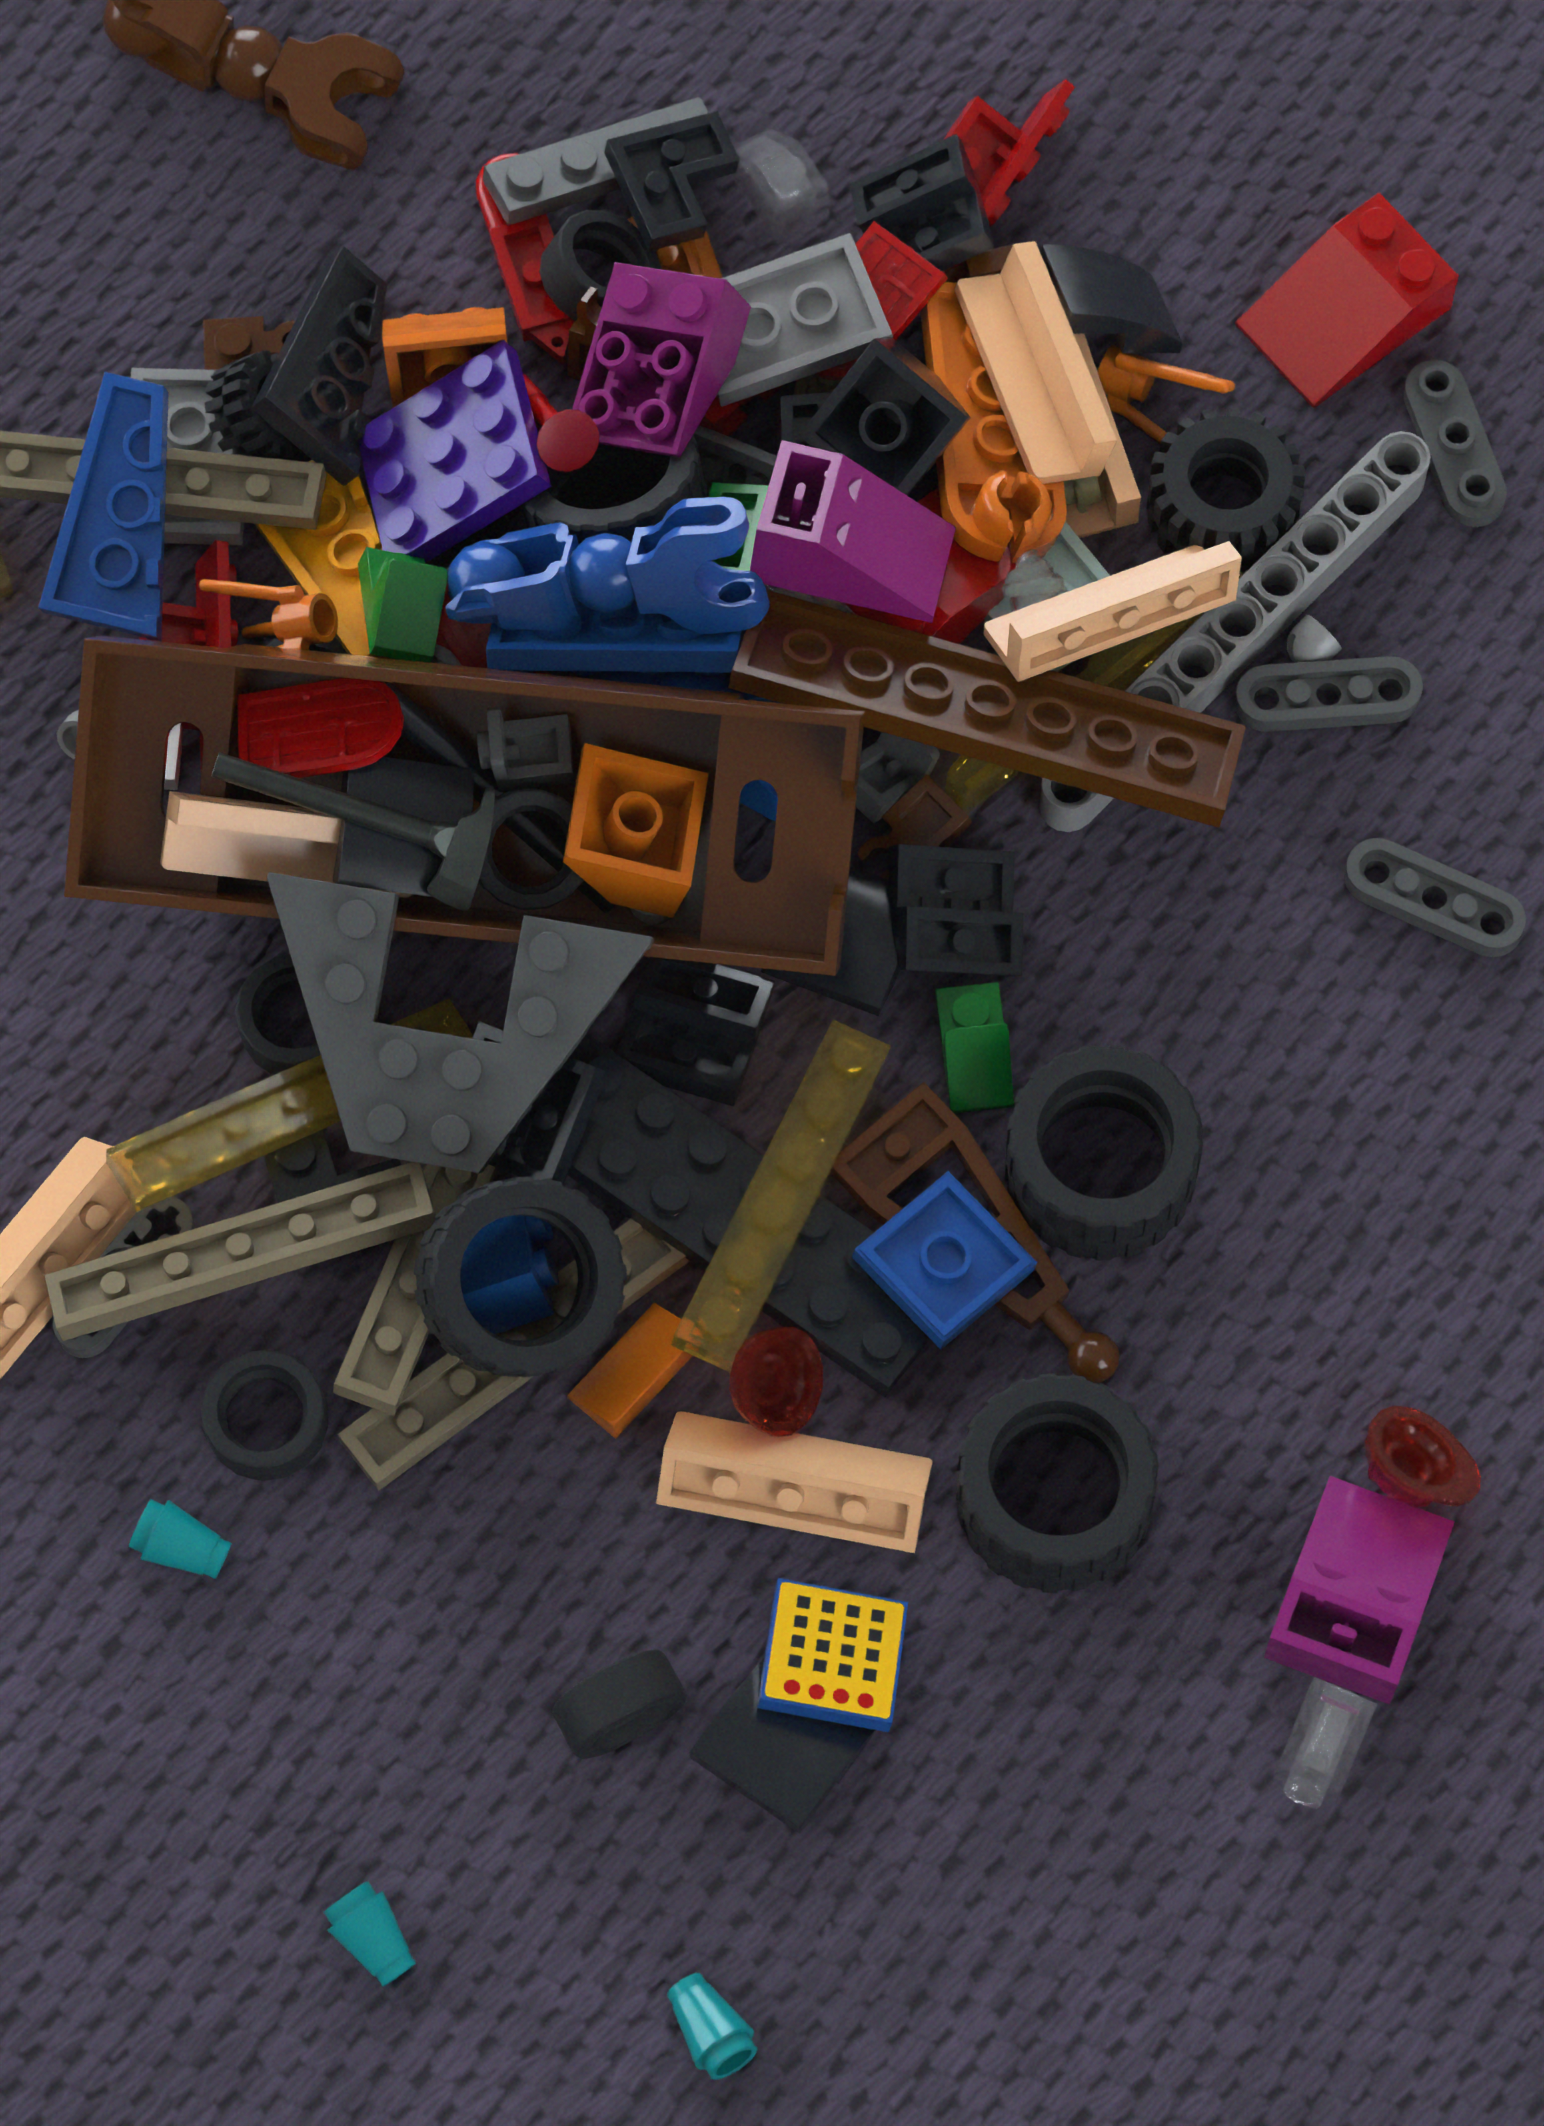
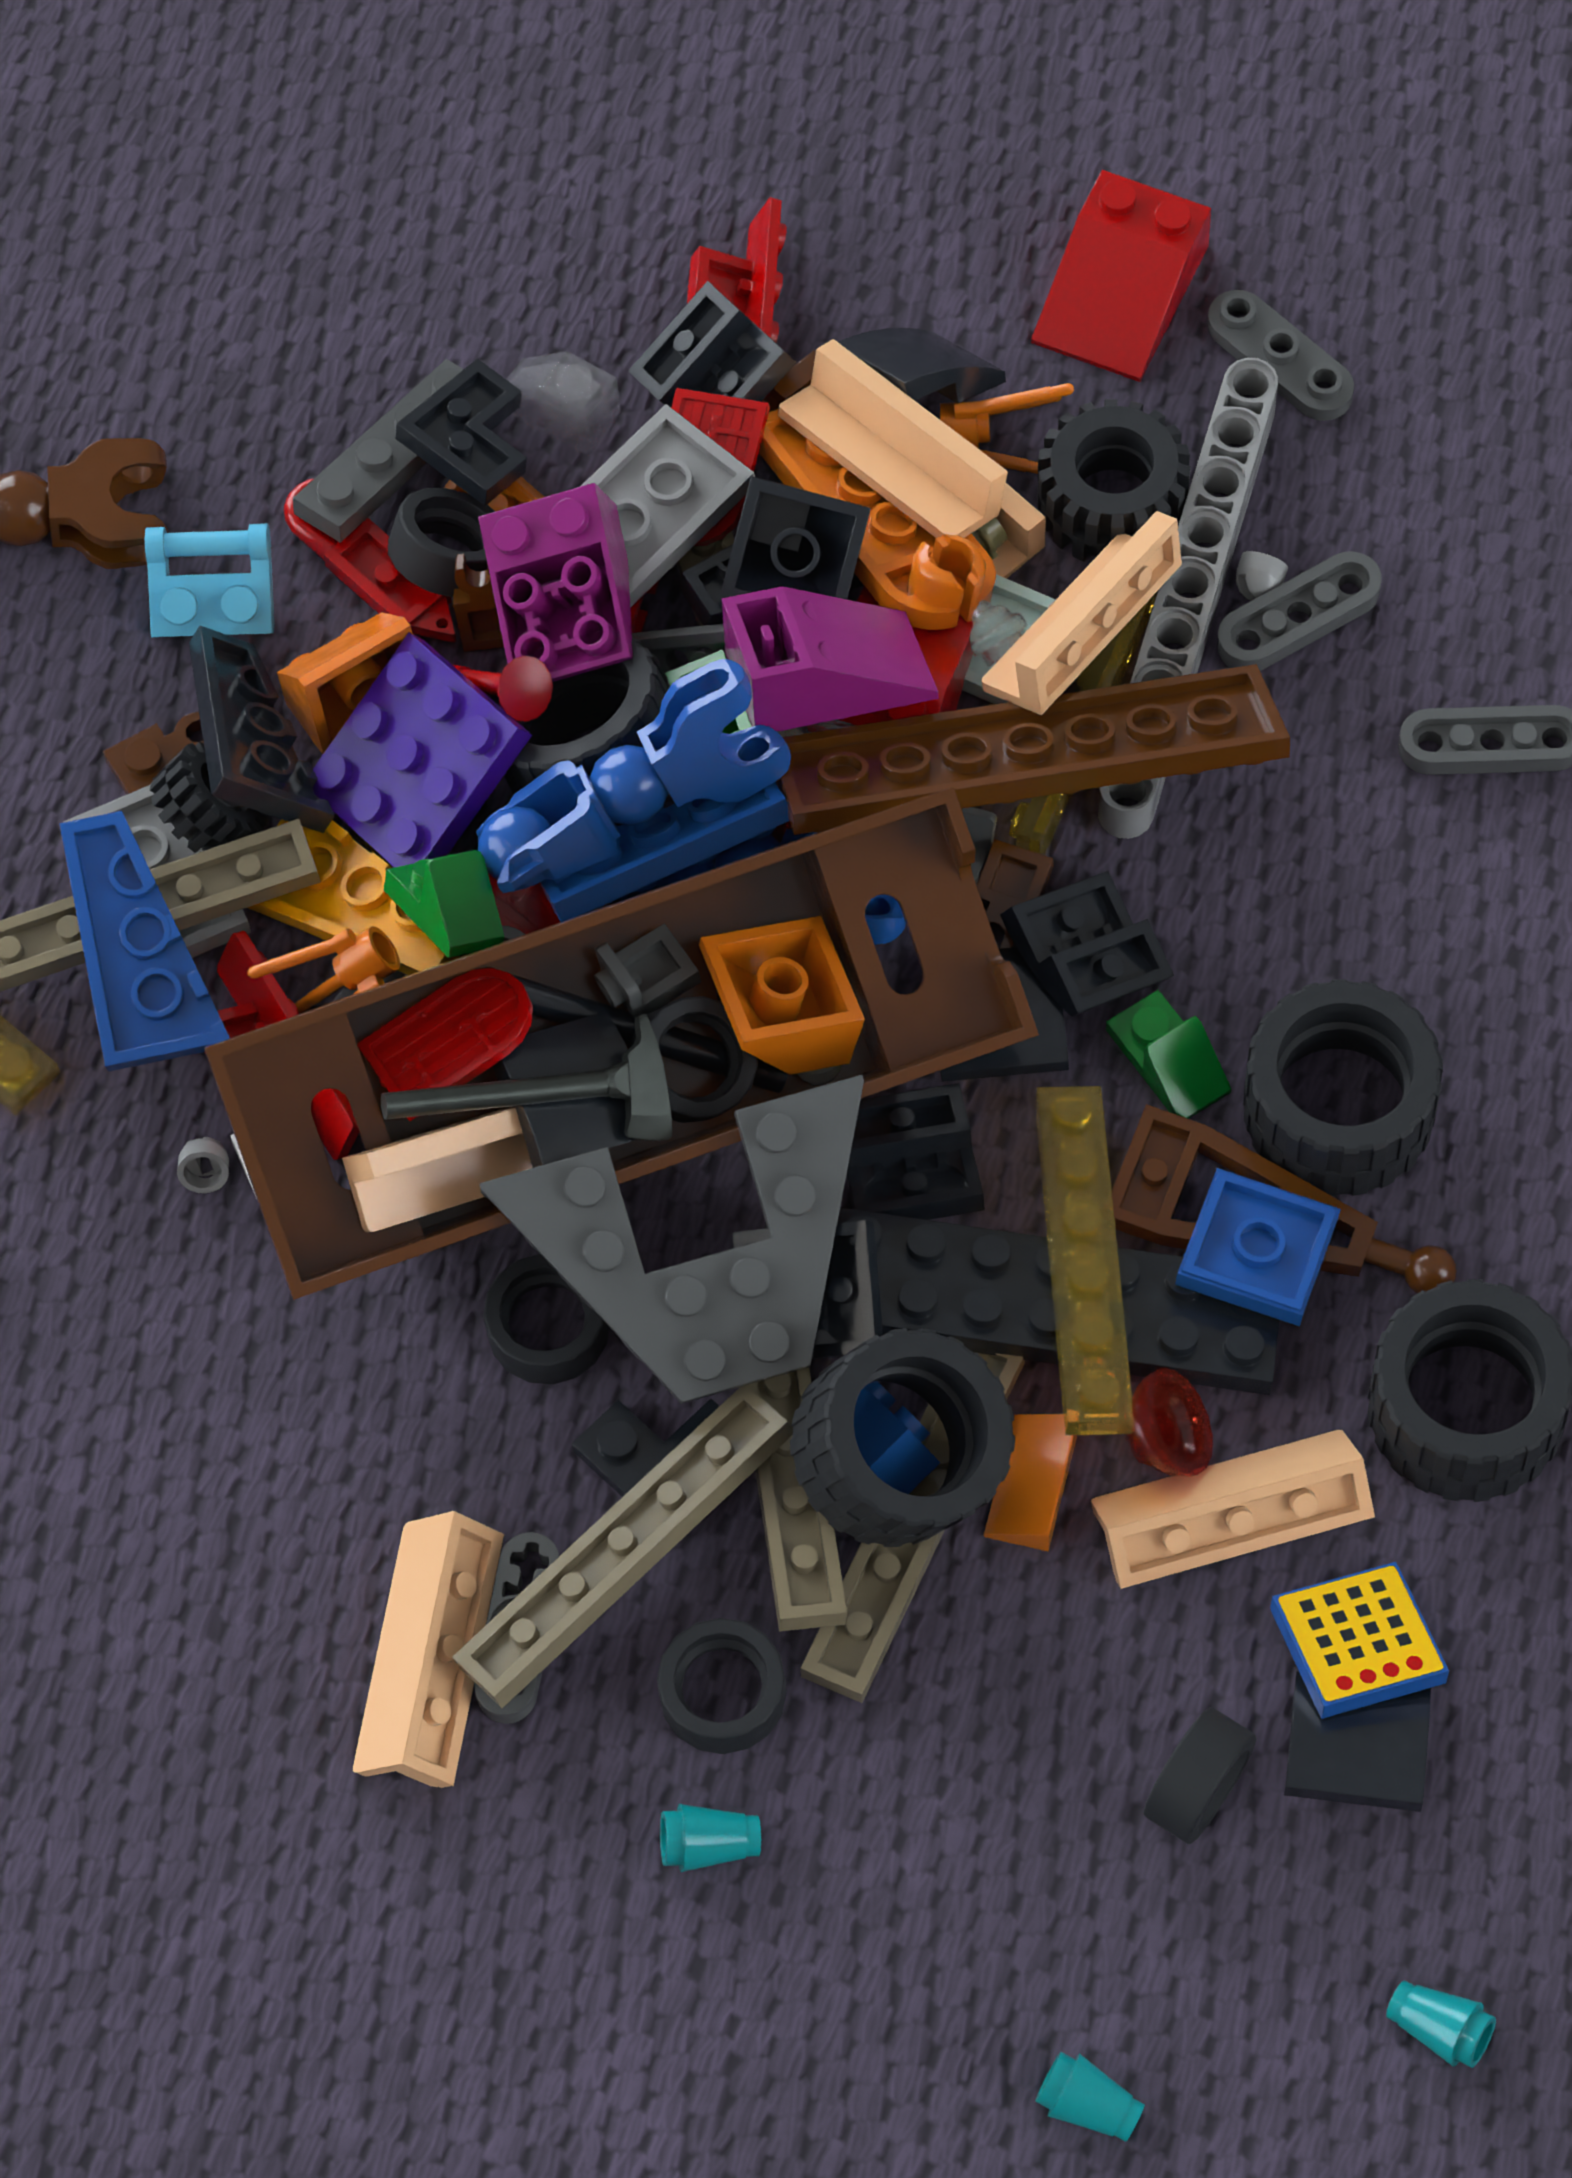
camera: 25 degrees left, 5 degrees down
(243, 1124) = (559, 1434): clear yellow plate -> none
(367, 225) = (216, 601): none -> medium azure plate

